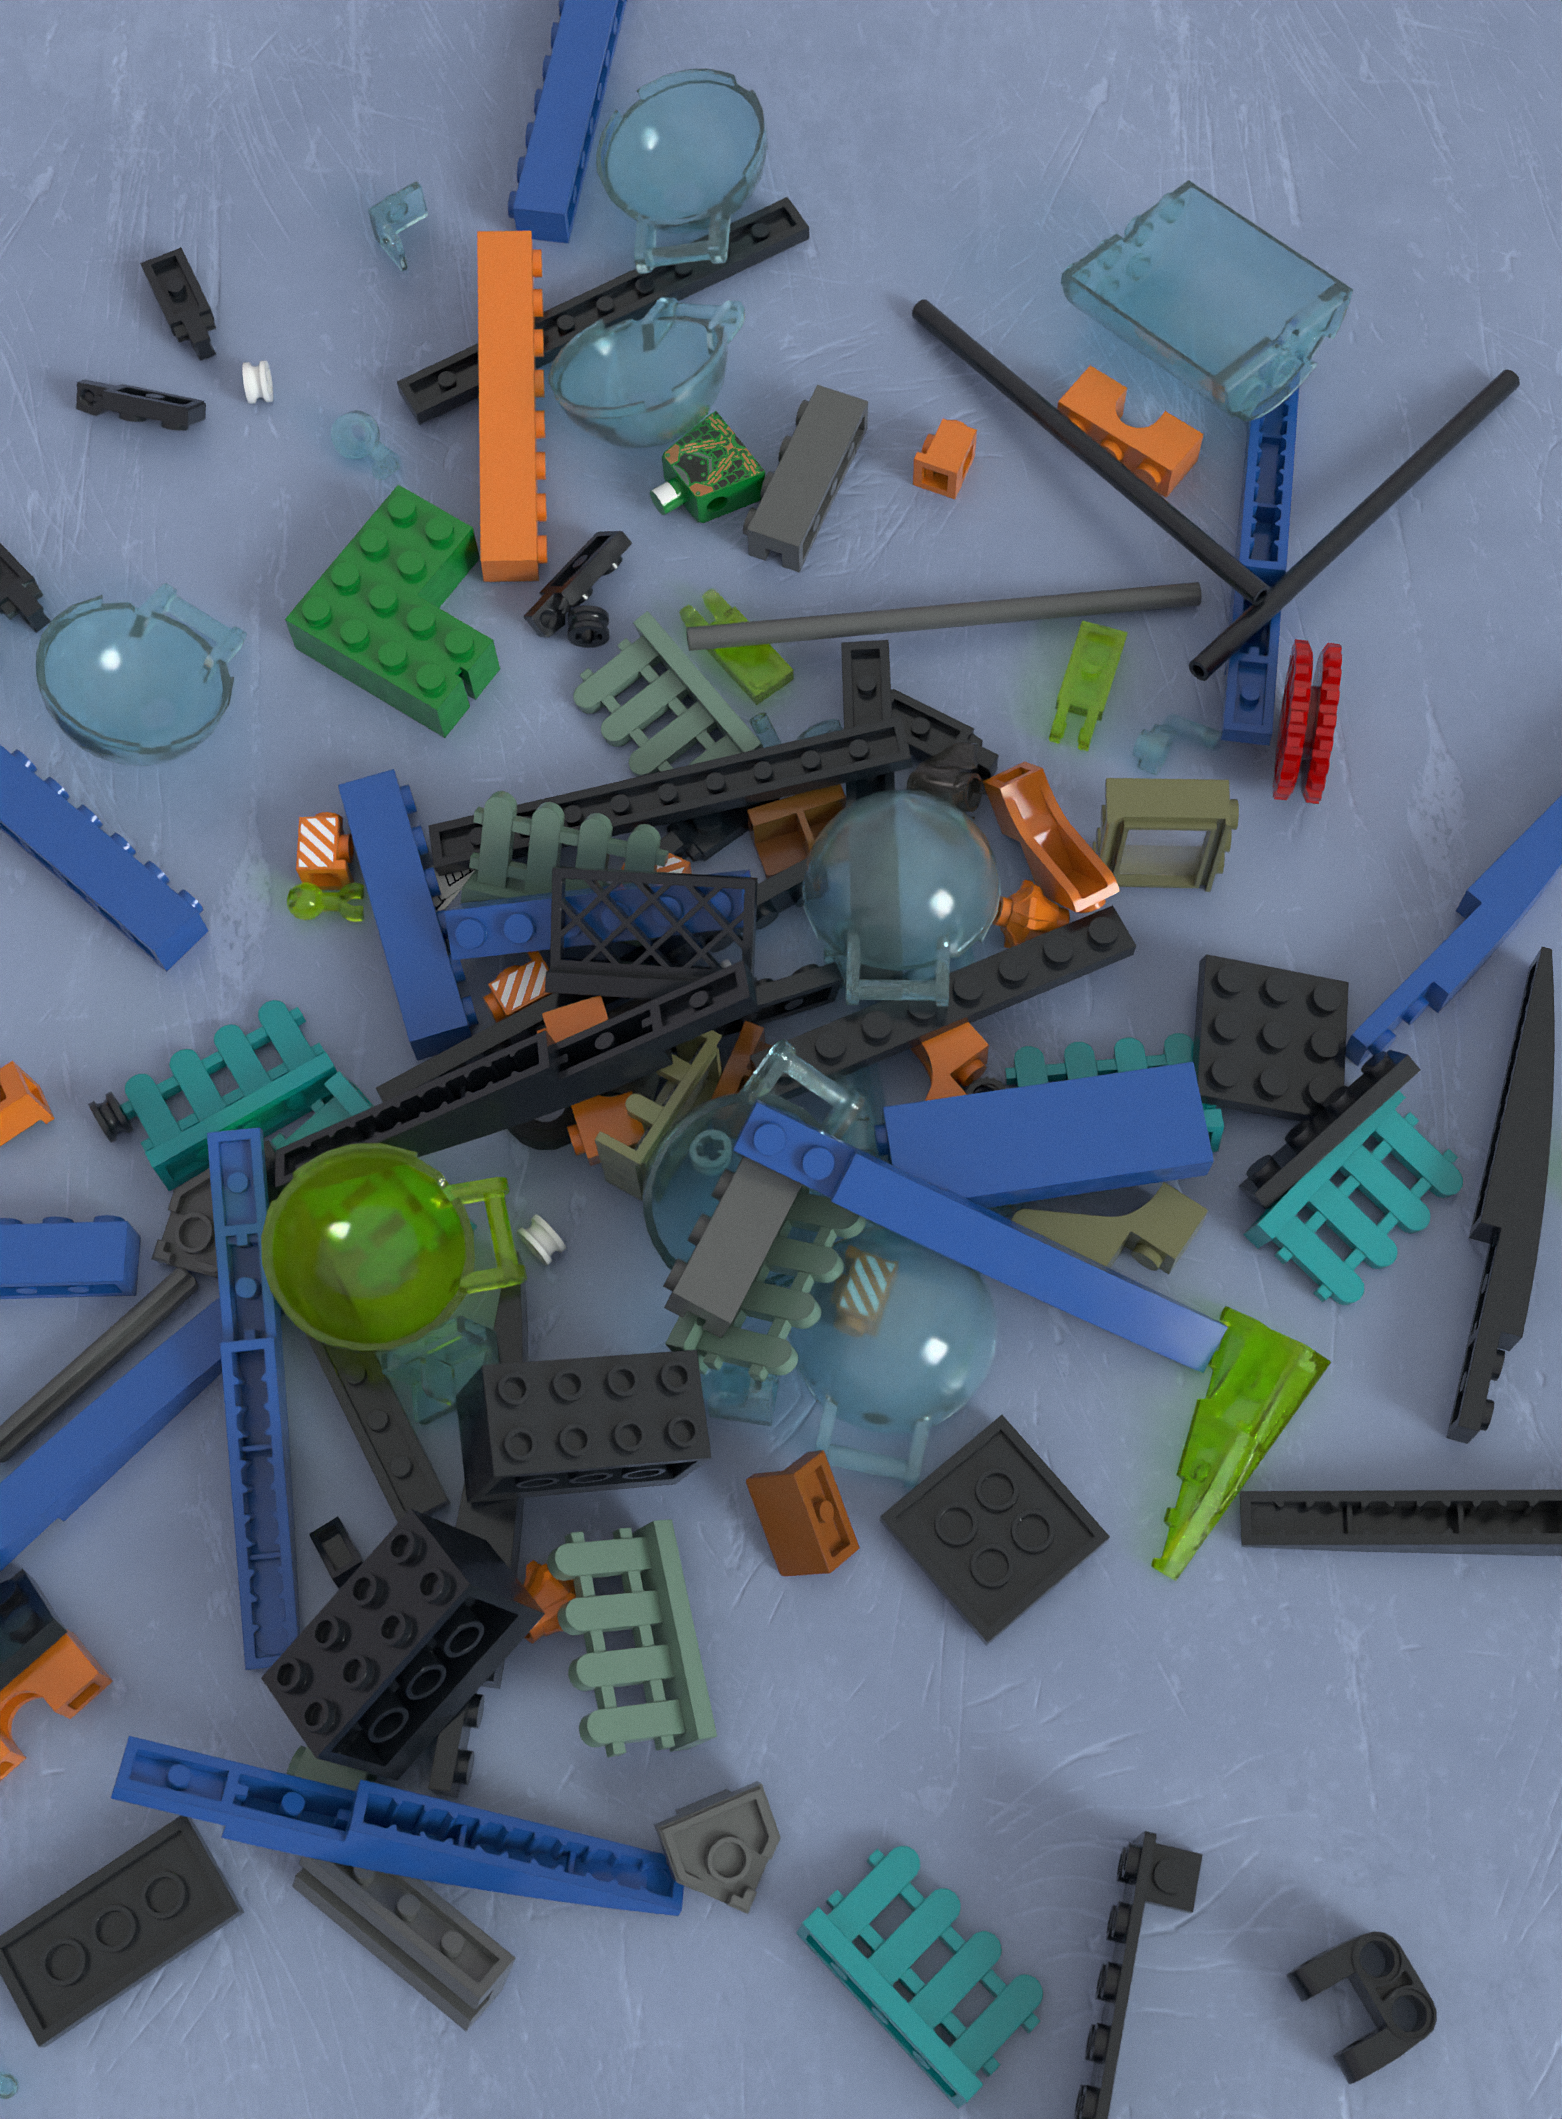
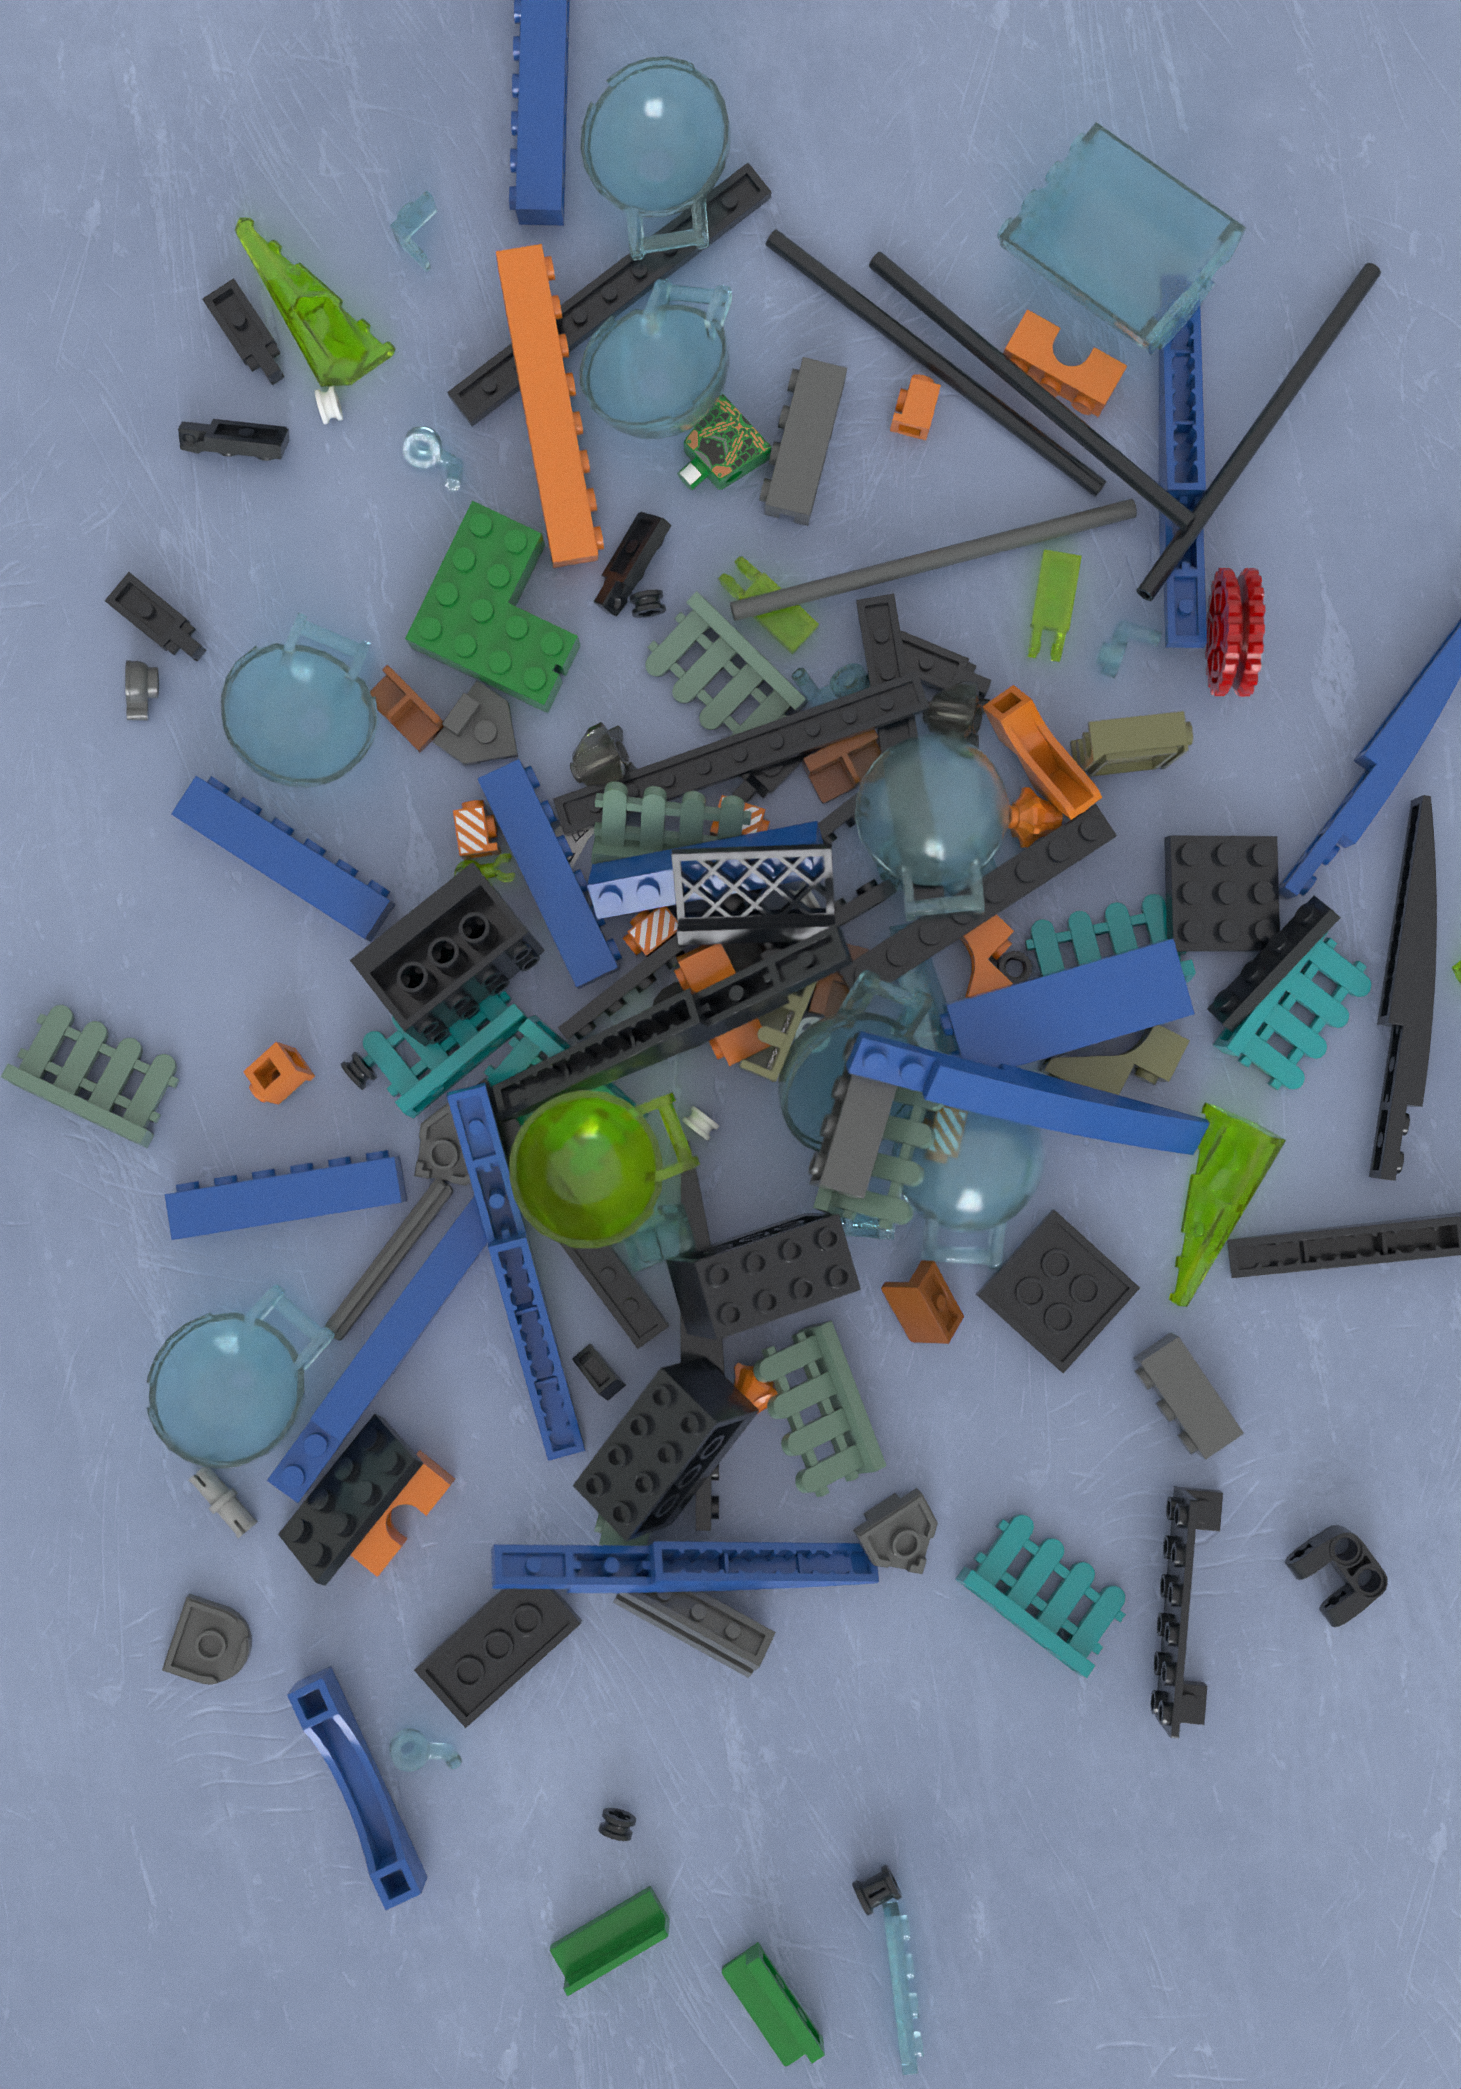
camera: 15 degrees left, 20 degrees up
(253, 980) = (448, 956): none -> black brick
(266, 298) = (328, 336): none -> clear neon green wedge
(273, 709) = (406, 710): none -> dark orange panel
(353, 738) = (478, 728): none -> dark grey plate
(493, 773) = (600, 756): none -> clear smoke brick
(987, 426) = (935, 362): none -> black piece
(1161, 1702) = (1186, 1396): none -> dark grey brick

